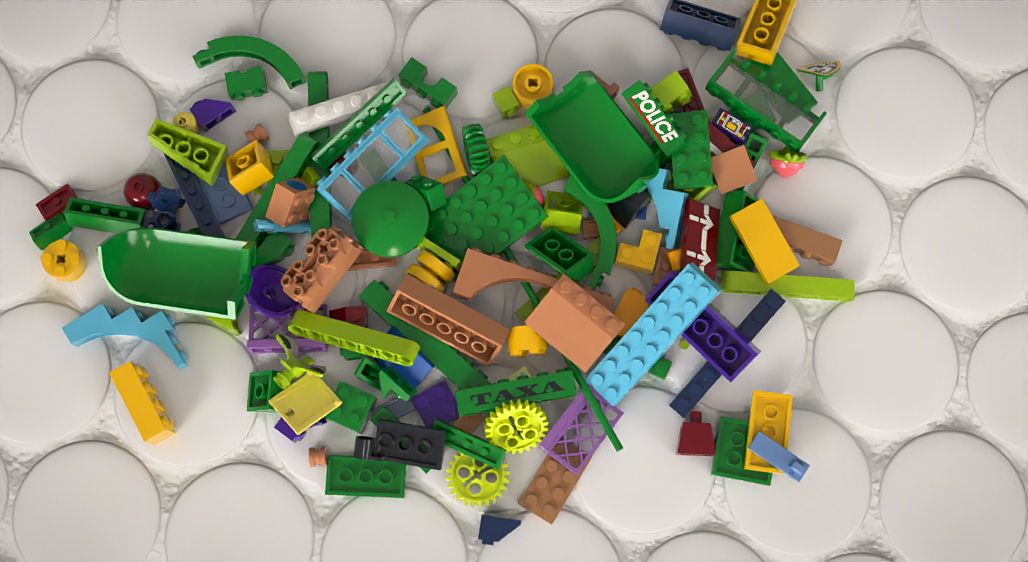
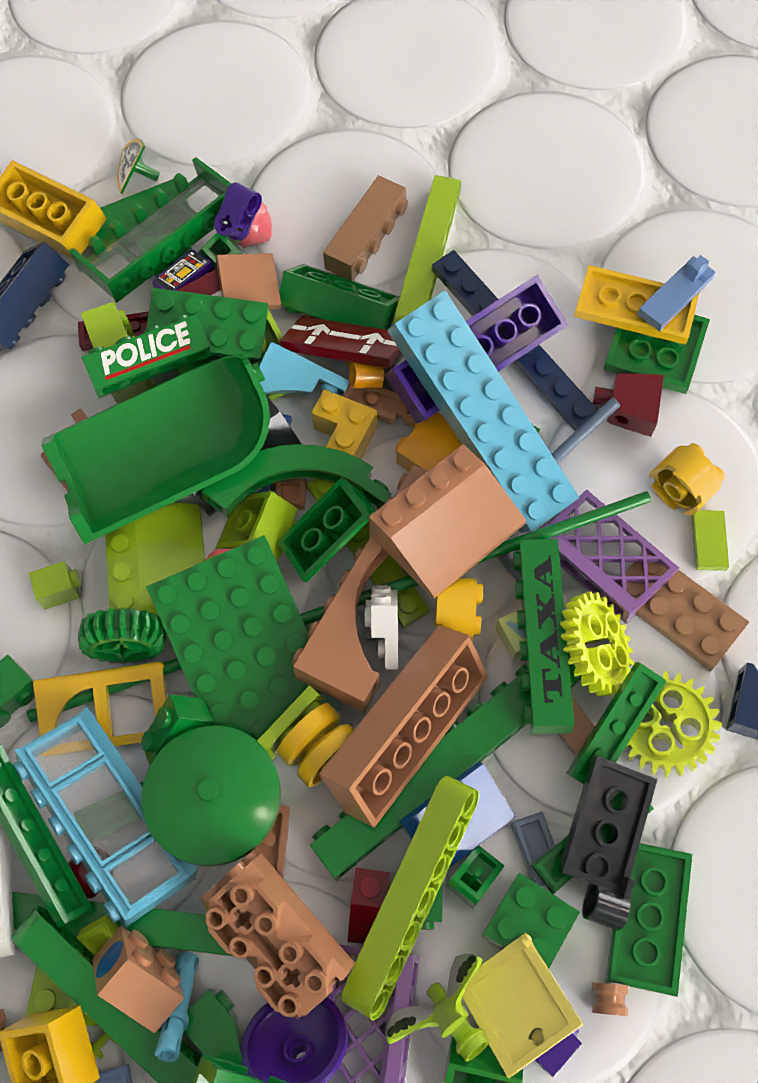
camera: 80 degrees left, 10 degrees down
(392, 381) = (494, 838): green slope -> none
(436, 404) = (539, 775): dark purple plate -> none
(507, 298) = (382, 617): none -> white plate
(531, 83) = (41, 536): yellow wheel -> none
(605, 497) = (710, 540): none -> lime tile
(639, 474) = (686, 478): none -> yellow brick
(664, 406) = (587, 428): none -> sand blue bar
(764, 241) = (362, 260): yellow tile -> none
(781, 150) = (239, 210): none -> dark purple piece

